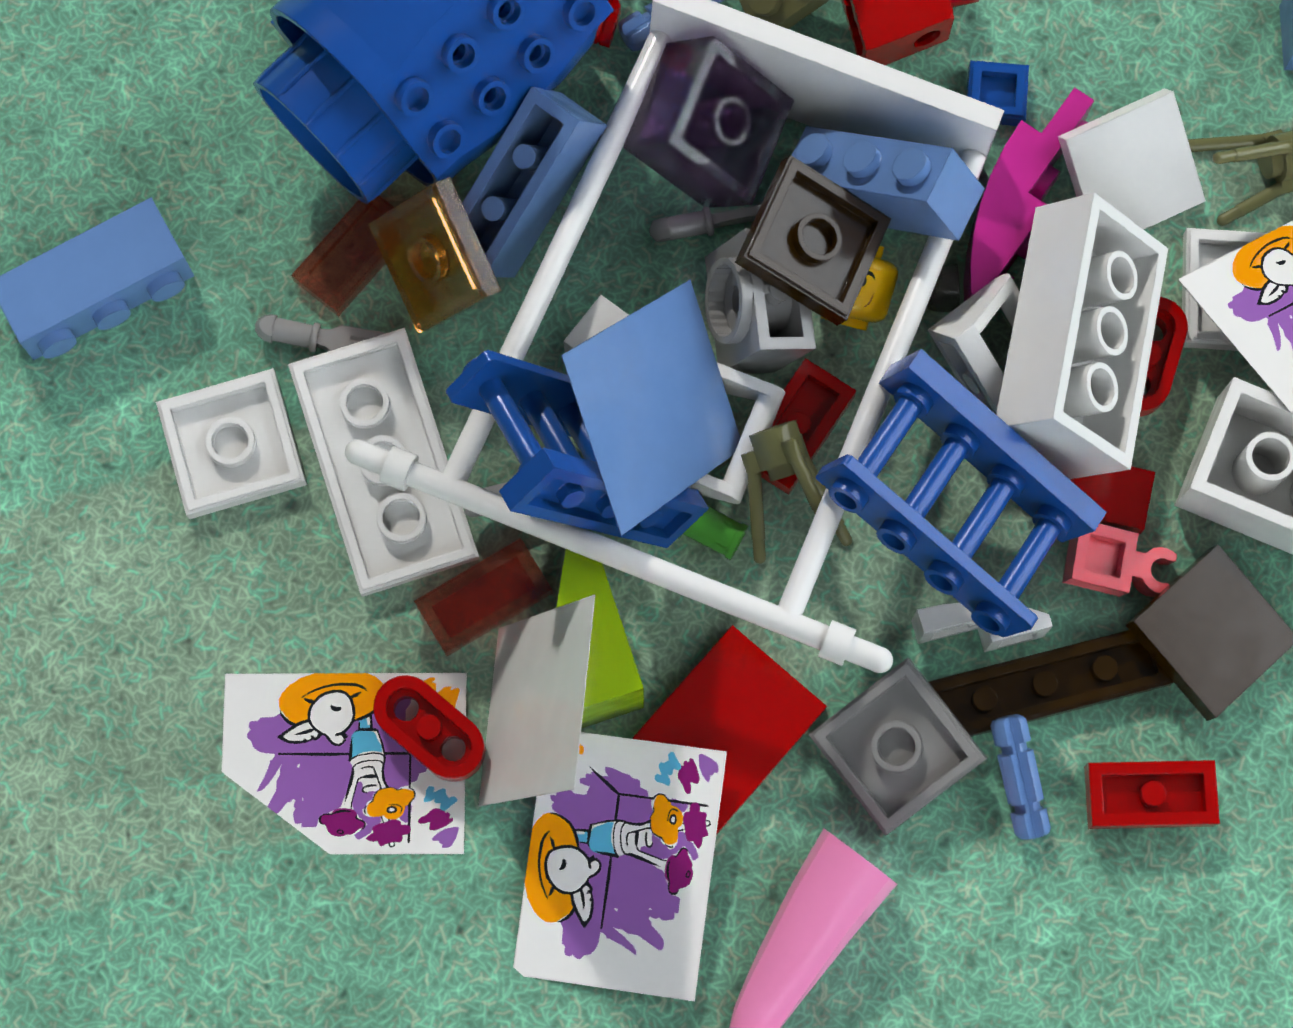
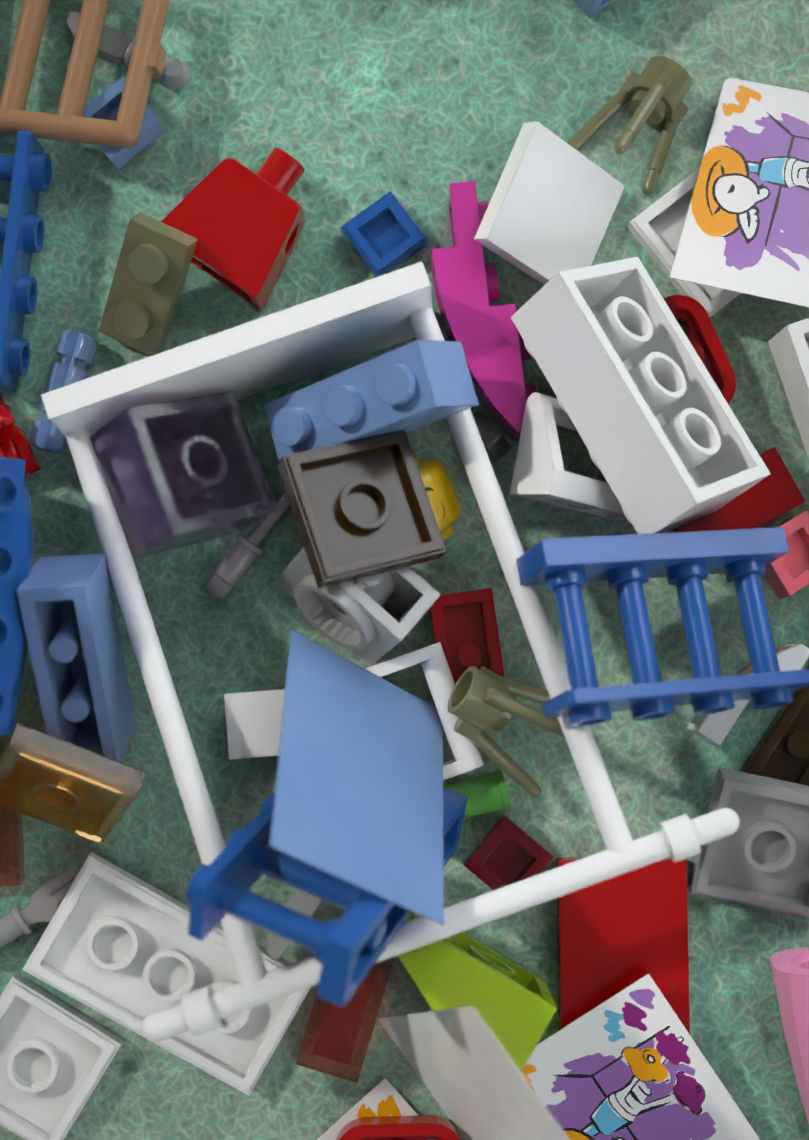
camera: 45 degrees left, 10 degrees up
(689, 614) = (507, 856): none -> dark red tile

